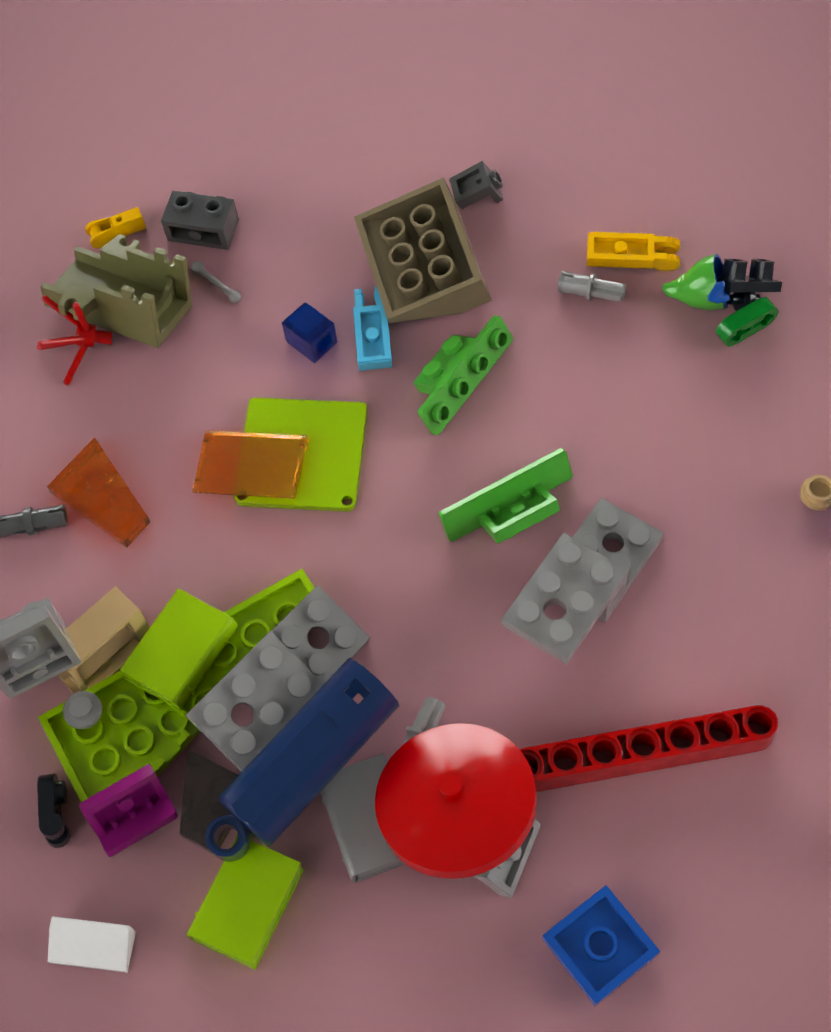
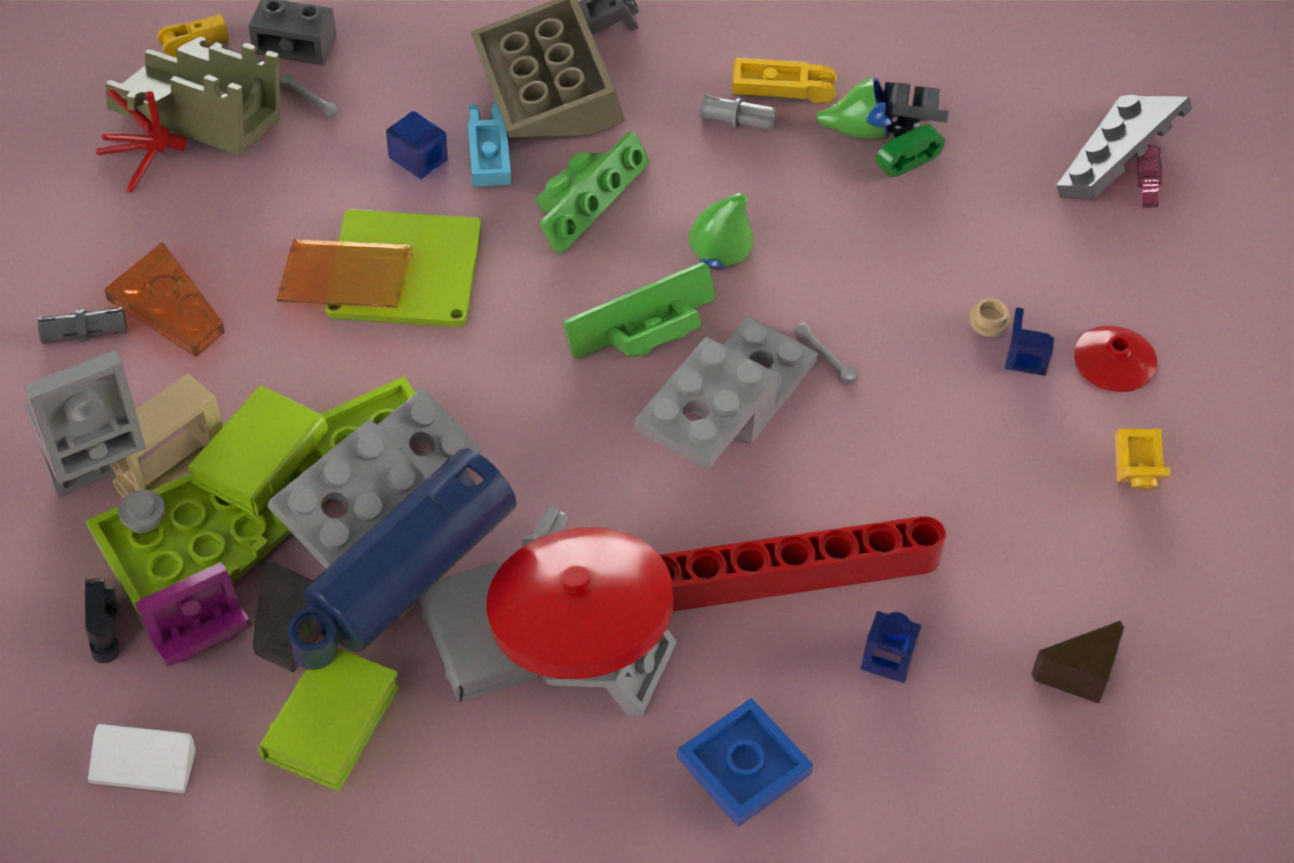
camera: 10 degrees left, 10 degrees down
(577, 416) = (722, 233): none -> bright green hat
(690, 551) = (847, 374): none -> light grey hinge
(729, 831) = (894, 635): none -> clear blue brick

